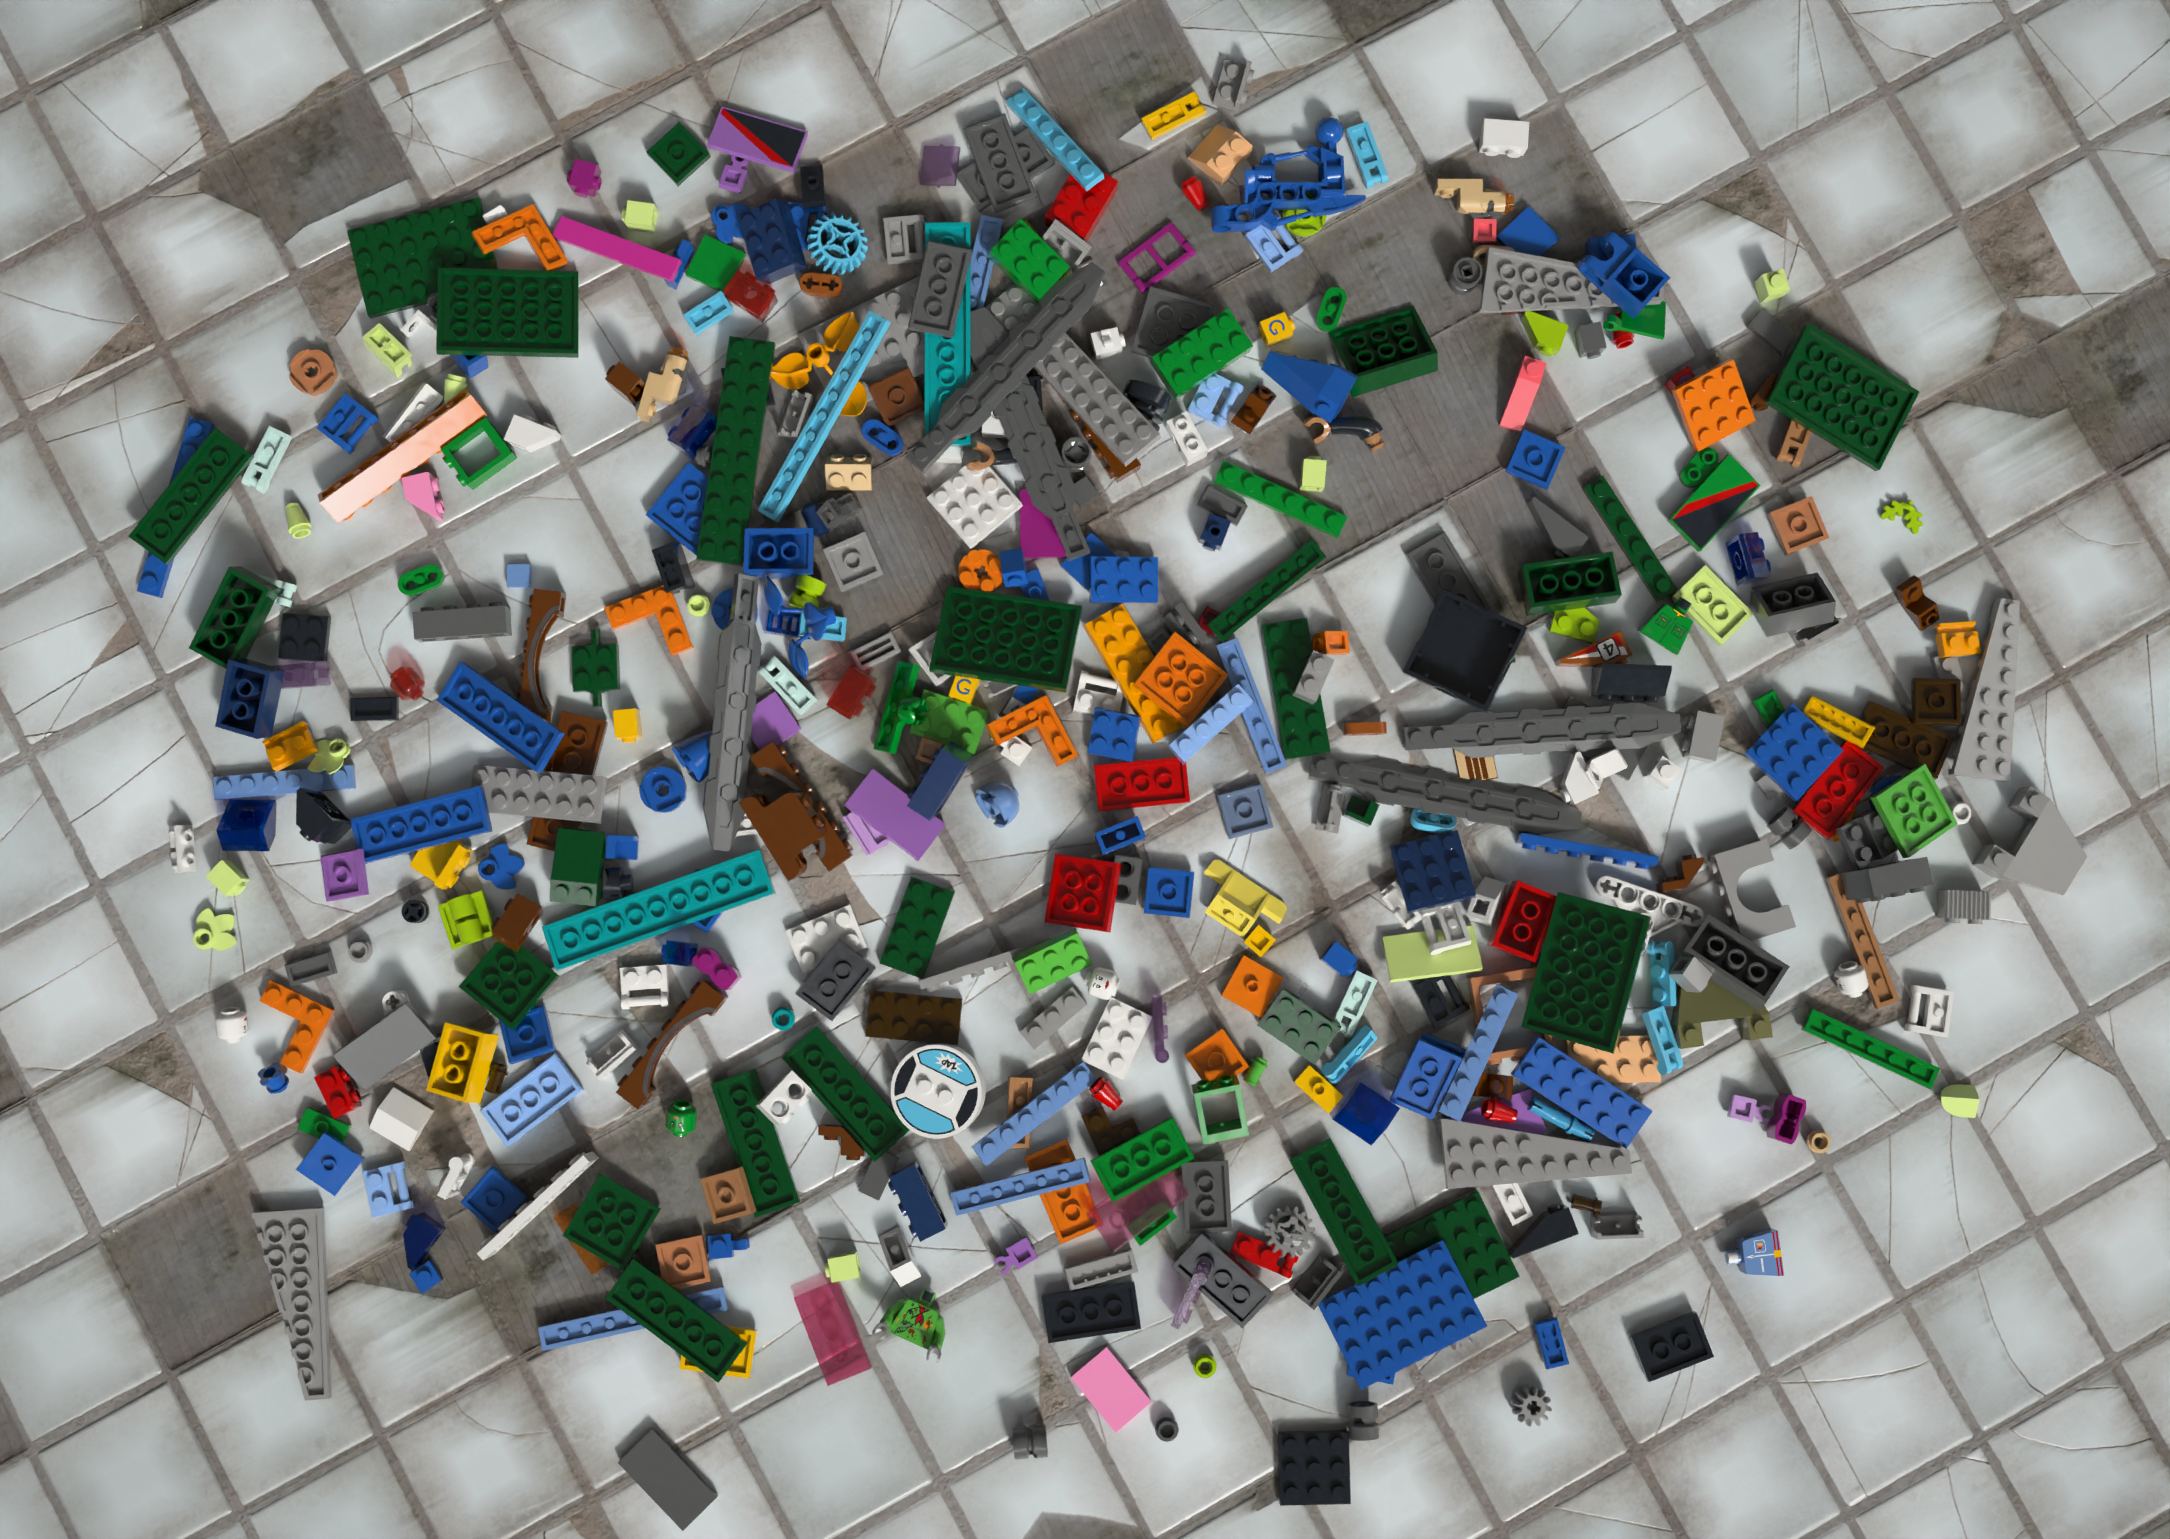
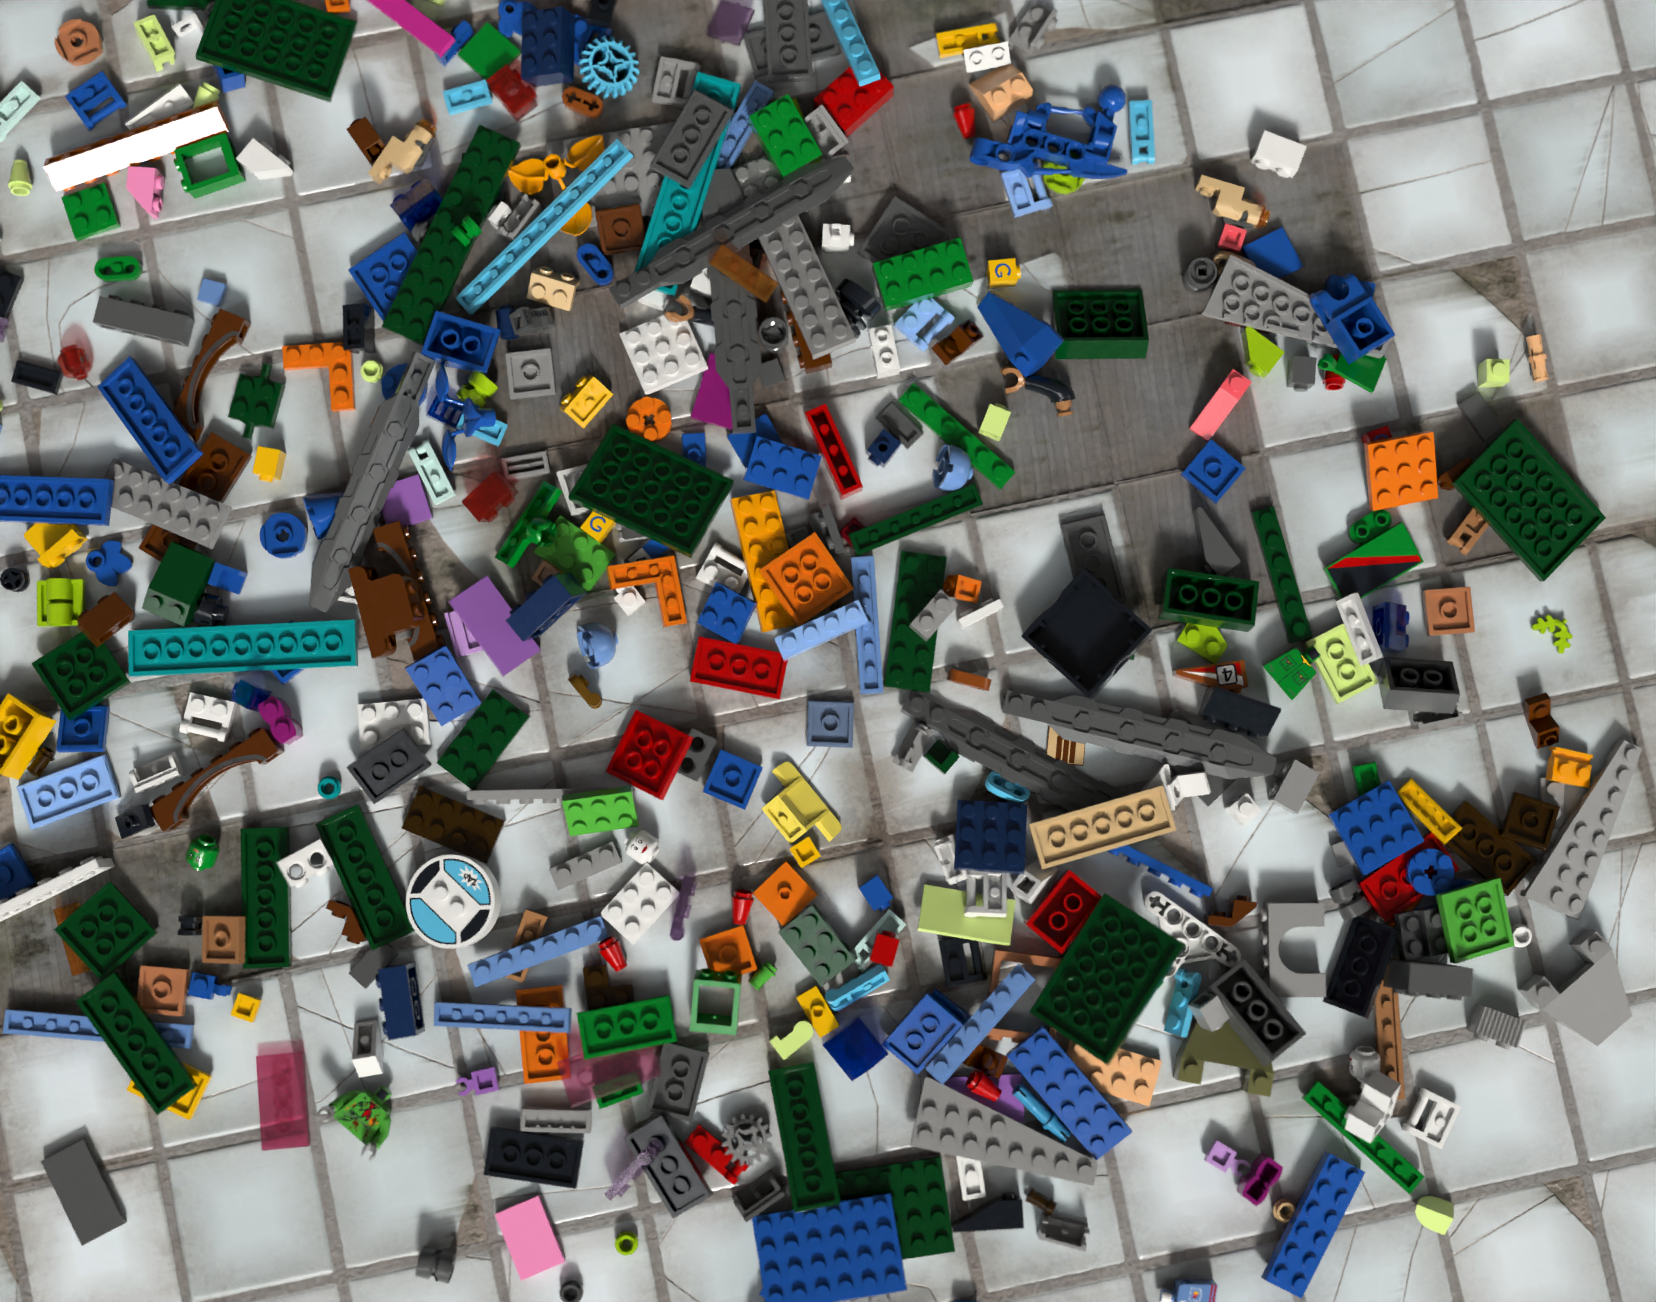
camera: 20 degrees right, 0 degrees up
(376, 532) = (91, 211): none -> green plate
(606, 1108) = (135, 821): none -> black plate
(690, 1192) = (190, 925): none -> black wheel
(750, 437) = (470, 227): none -> green wheel
(769, 1253) = (246, 1007): none -> yellow plate
(775, 417) = (499, 214): none -> white plate
(843, 1266) = (311, 1041): yellowish green brick -> none
(863, 886) = (443, 685): none -> blue plate
(913, 571) = (585, 400): none -> yellow bracket
(995, 847) = (580, 685): none -> pearl gold plate
(1014, 567) = (680, 425): blue brick -> none
(1031, 404) = (743, 273): none -> clear orange tile
(1120, 835) = (702, 711): blue brick -> none
(1147, 245) = (943, 175): magenta window -> none
(1168, 549) = (833, 451): none -> red brick
(1197, 126) = (986, 57): none -> white hinge
(1214, 1009) = (741, 906): none -> red cone
(1287, 531) = (953, 468): none -> medium blue cylinder
(1308, 1116) = (794, 1039): none -> yellowish green leg
(1331, 310) = (1060, 269): green plate -> none
(1348, 668) = (988, 608): none -> white plate
(1365, 1008) = (884, 948): none -> red brick
(1536, 830) = (1102, 827): none -> tan plate
(1662, 1040) = (1163, 1066): medium azure plate -> none
(1720, 568) = (1359, 629): none -> white plate
(1808, 259) = (1537, 358): none -> light nougat pin
(1820, 887) = (1361, 966): none -> black plate
(1849, 1146) = (1313, 1224): none -> blue plate
(1868, 785) = (1443, 872): none -> blue plate
(1872, 1016) = (1372, 1106): none -> white brick

